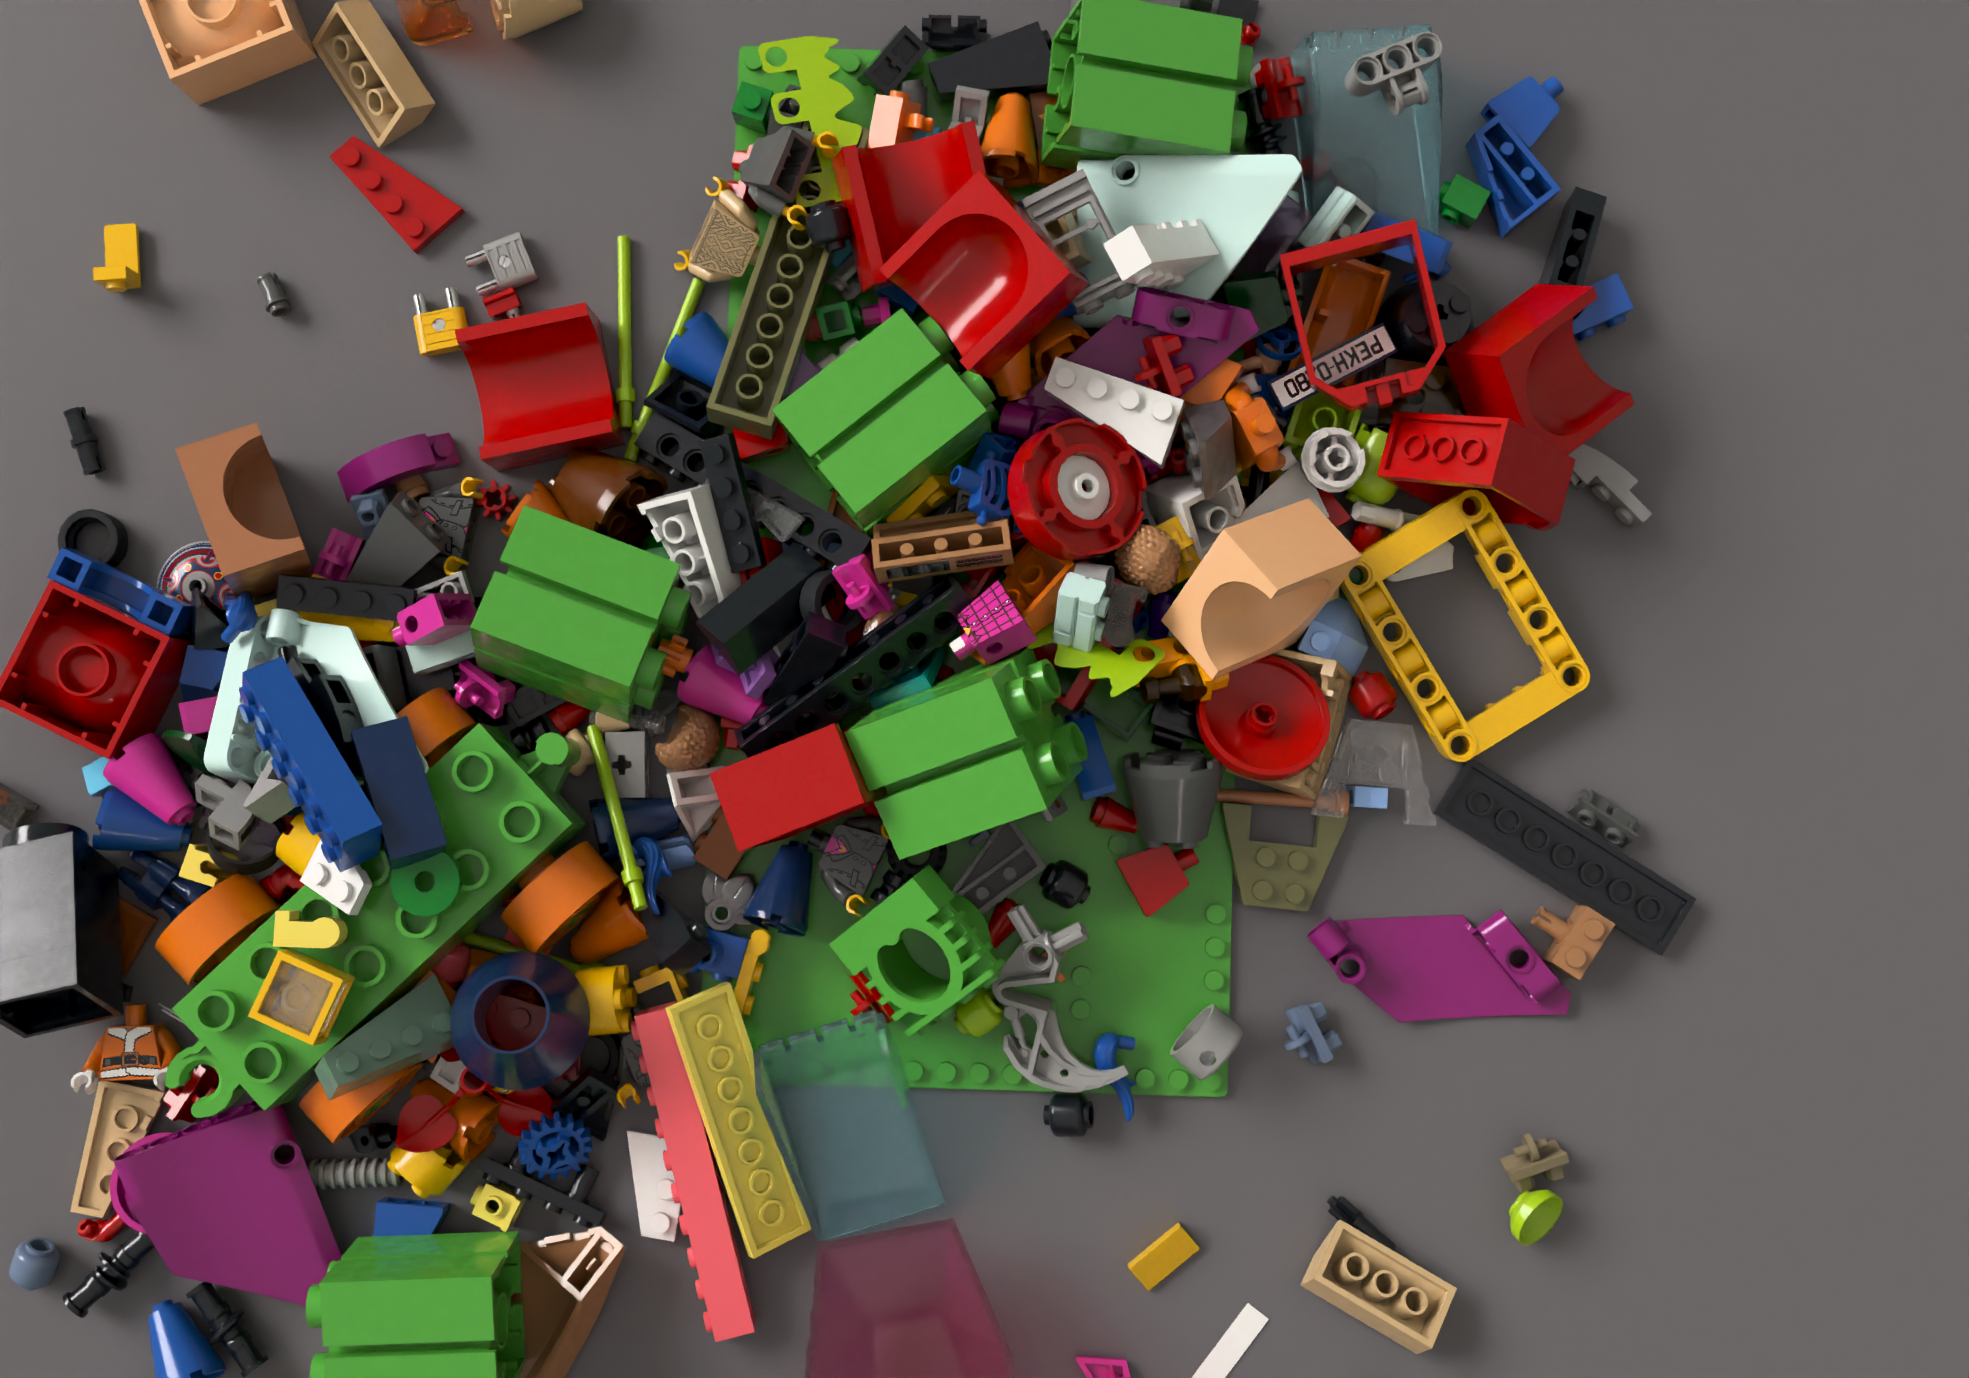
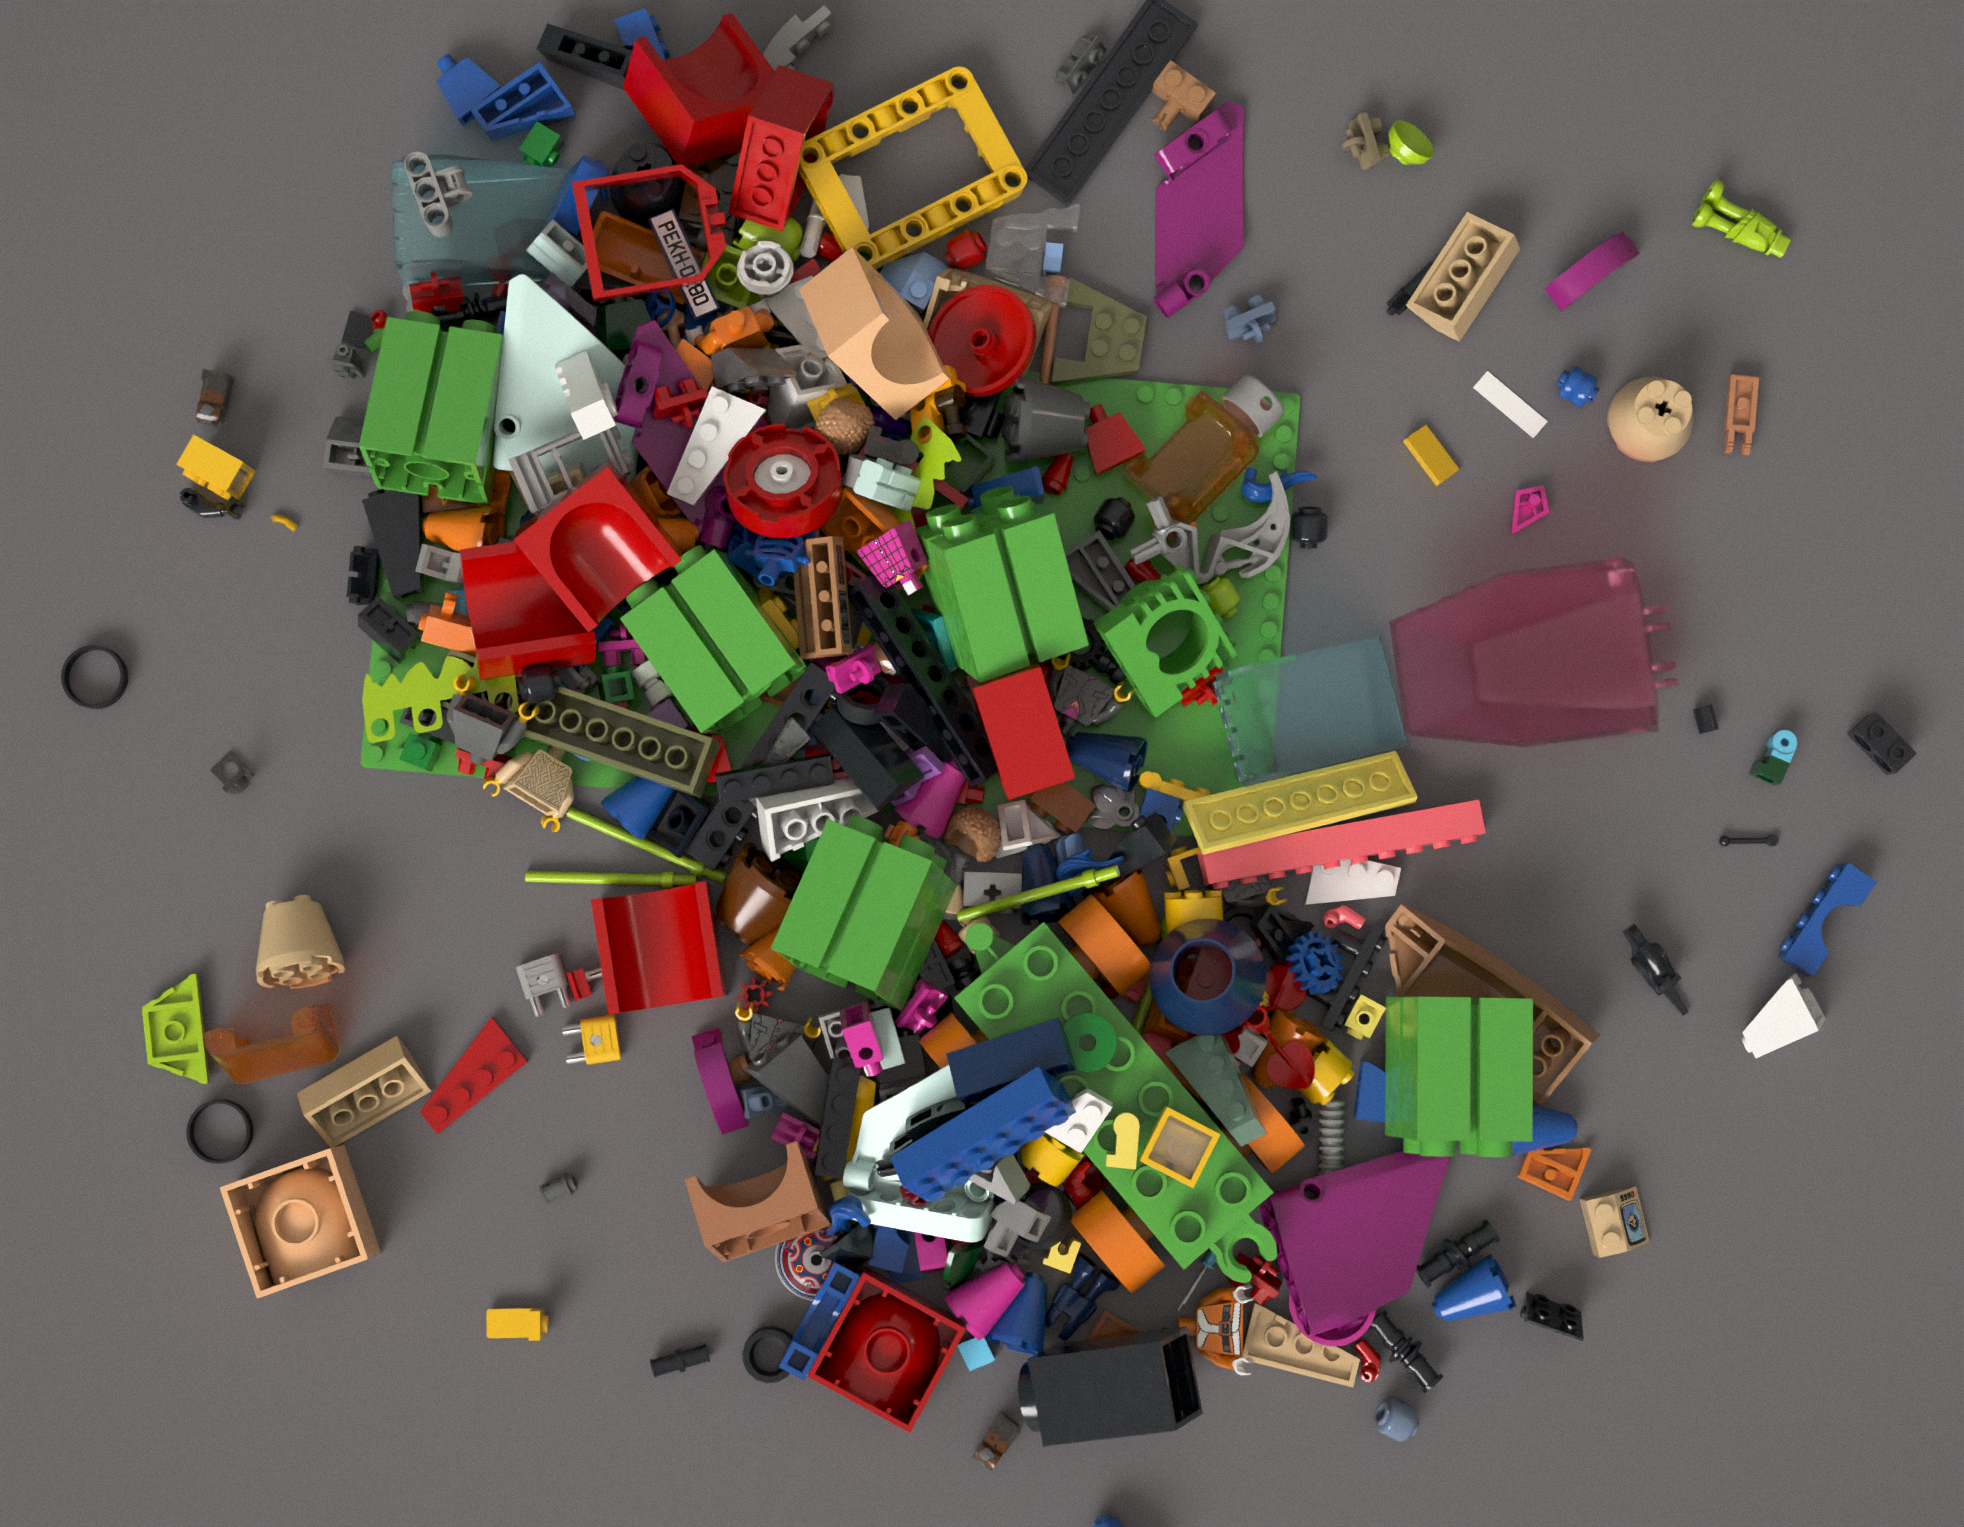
camera: 90 degrees left, 0 degrees up
(617, 1174) = (1341, 915): none -> coral arm
(1138, 976) = (1196, 460): none -> clear orange windscreen

